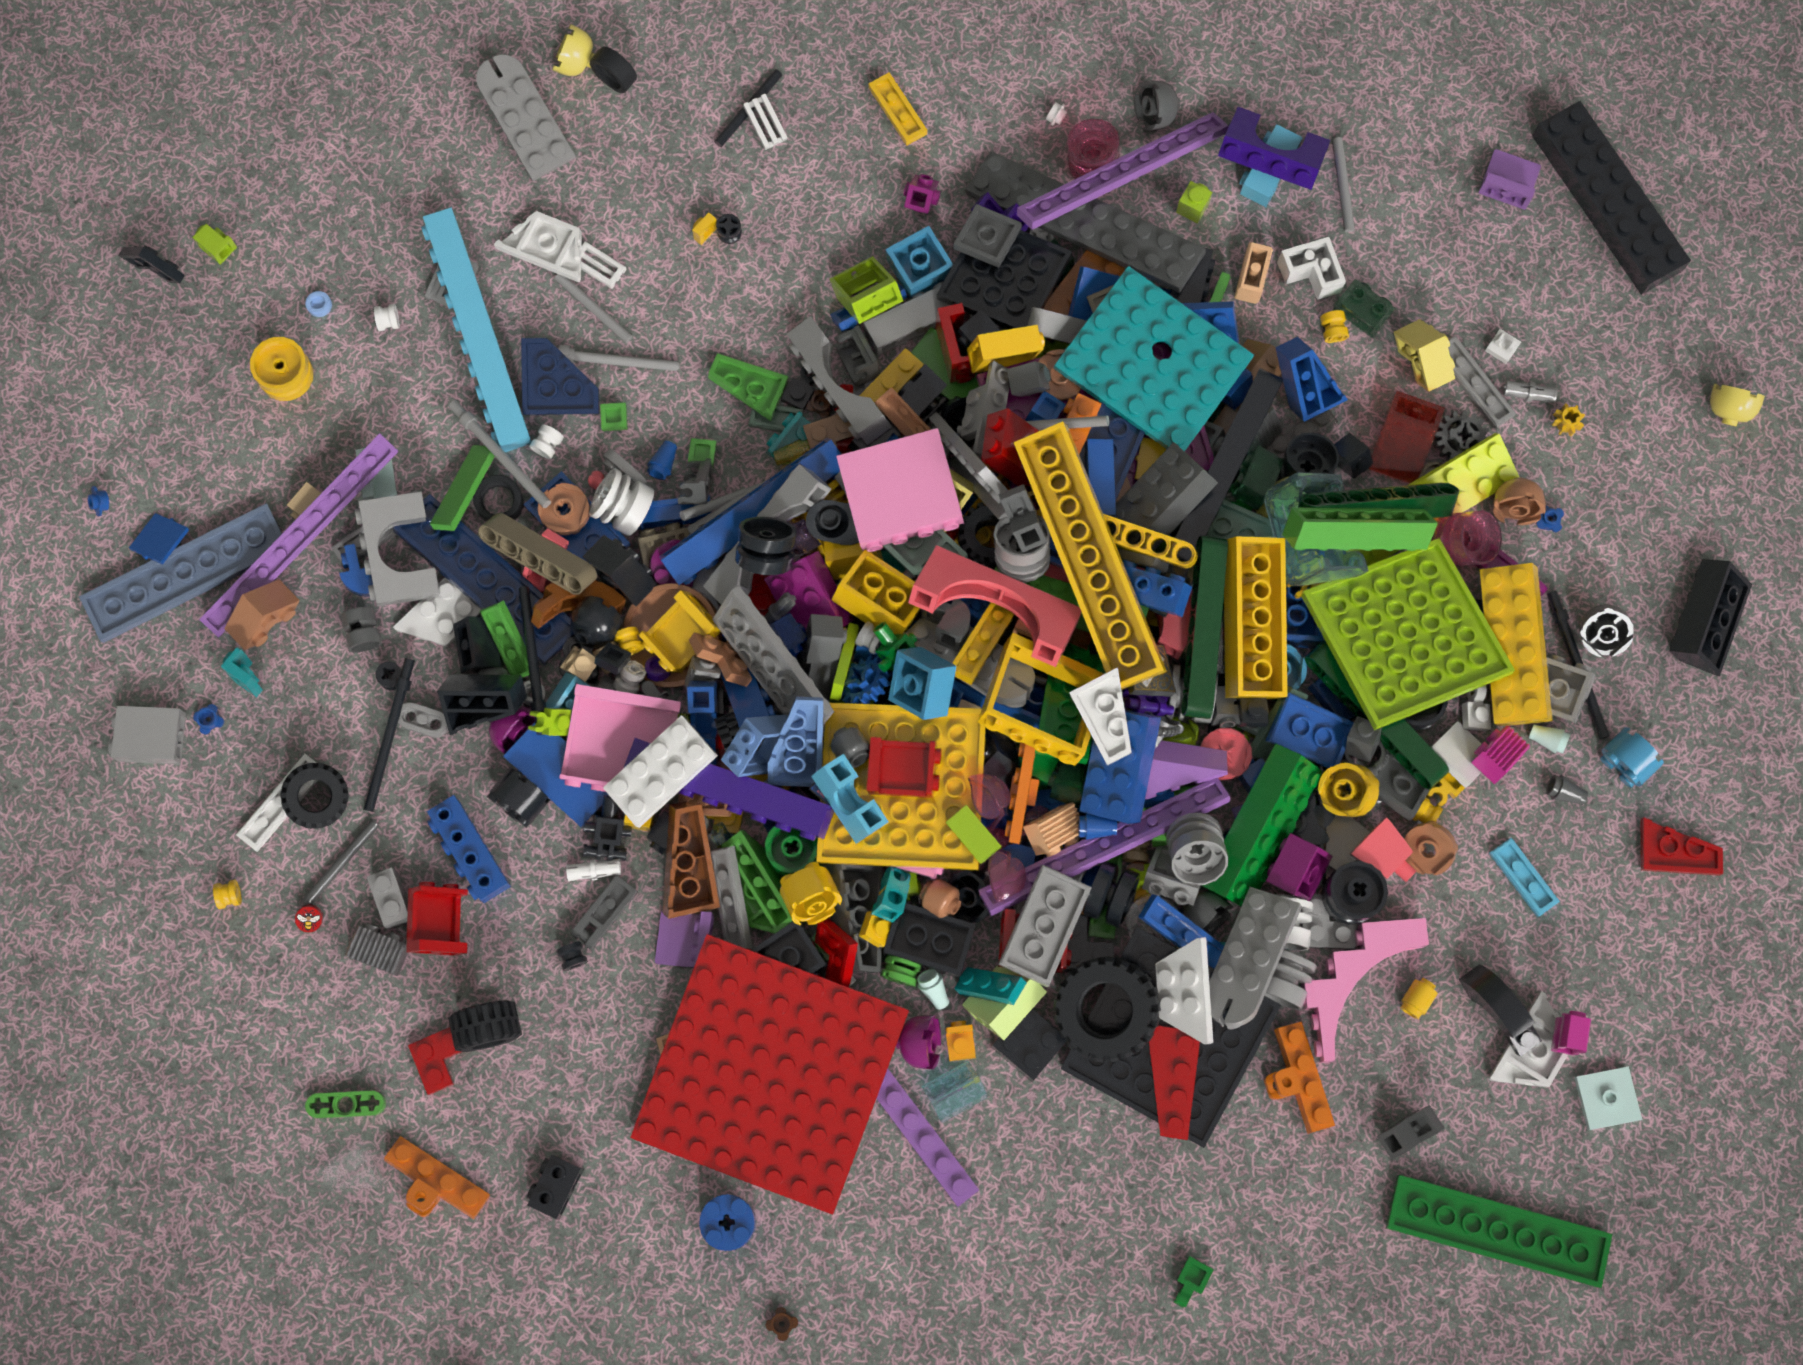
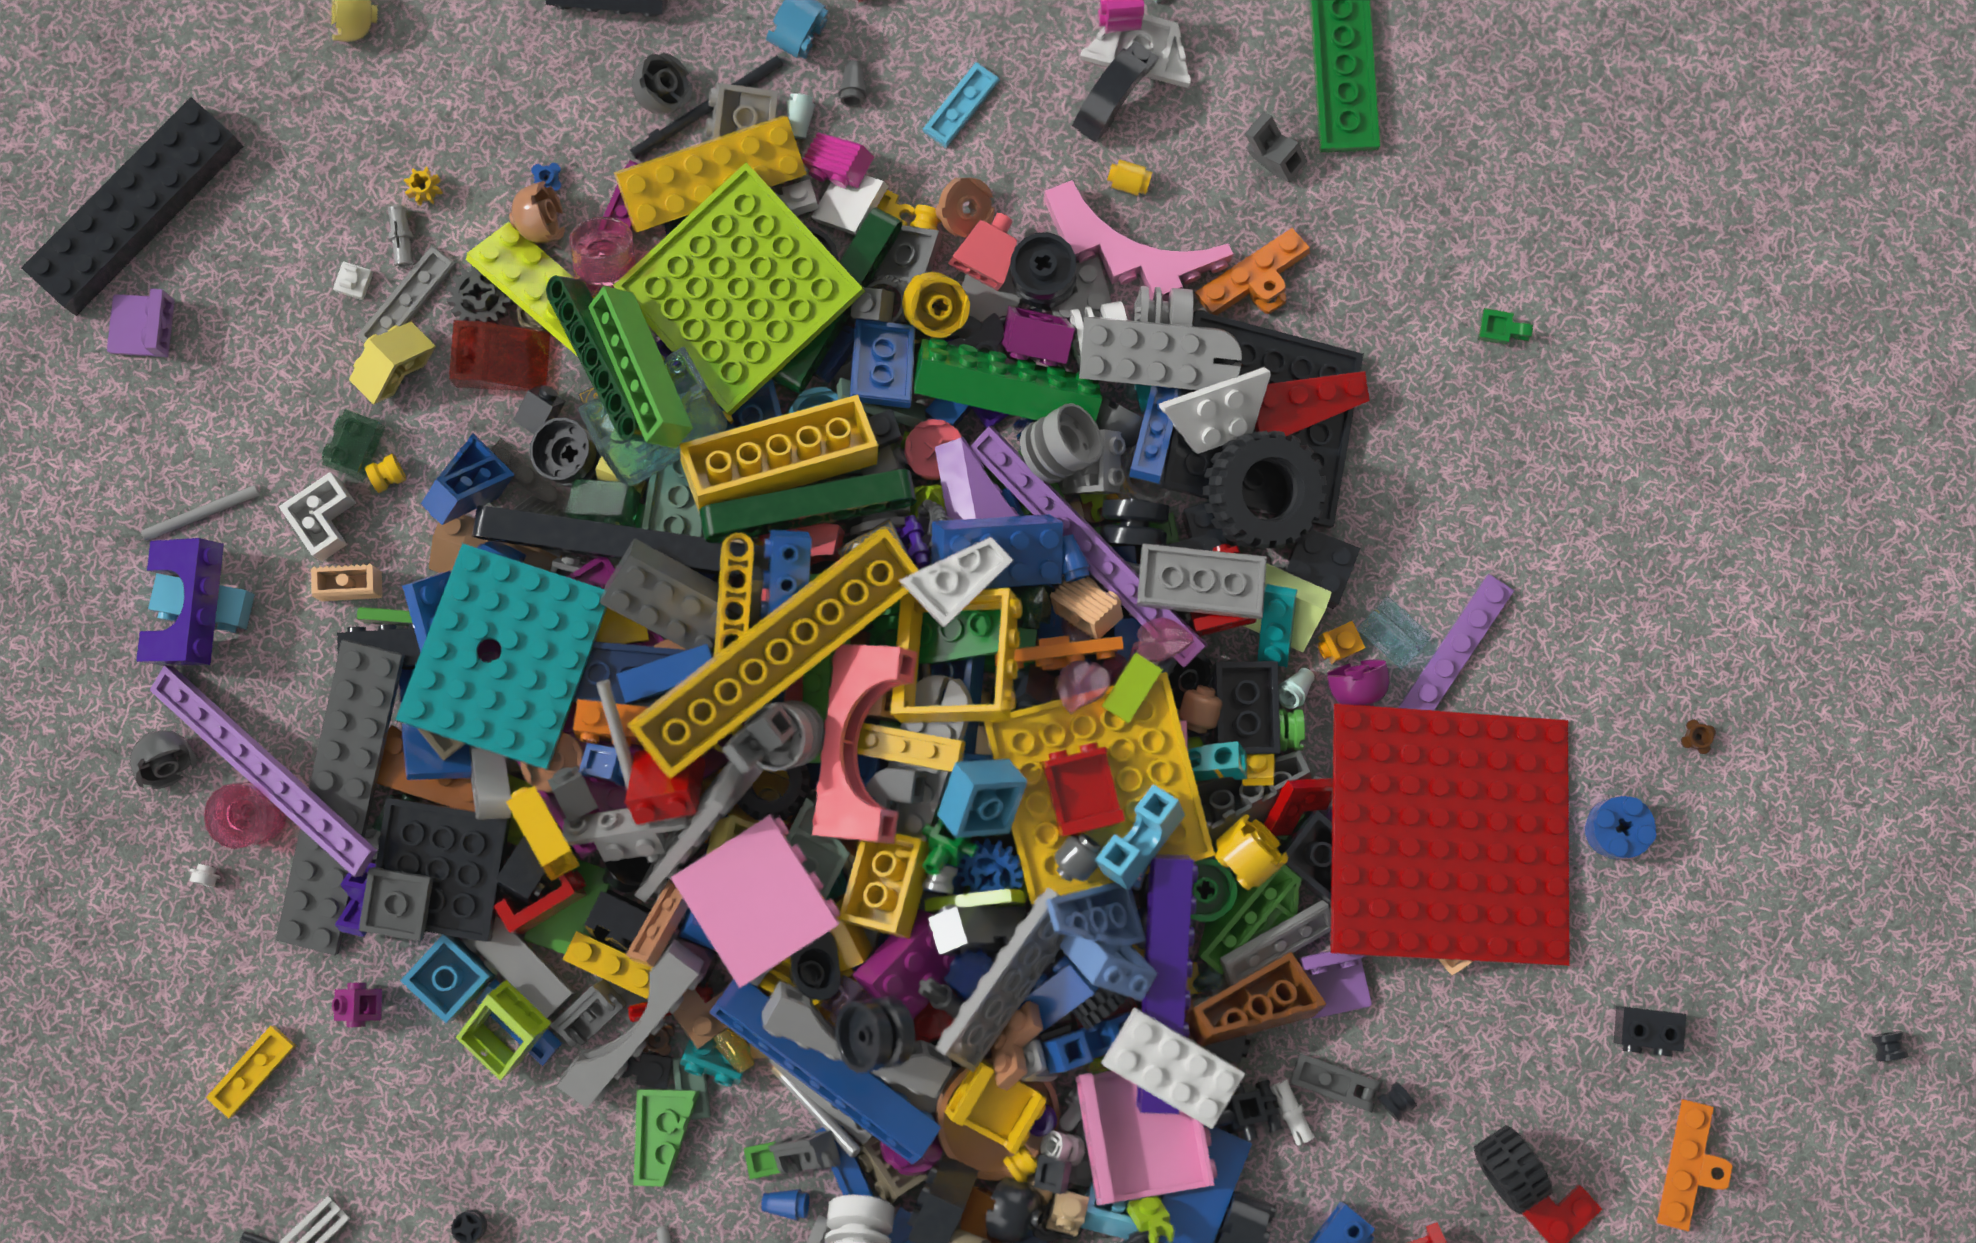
camera: 110 degrees left, 5 degrees up
(1194, 201) = (274, 677): lime brick -> none

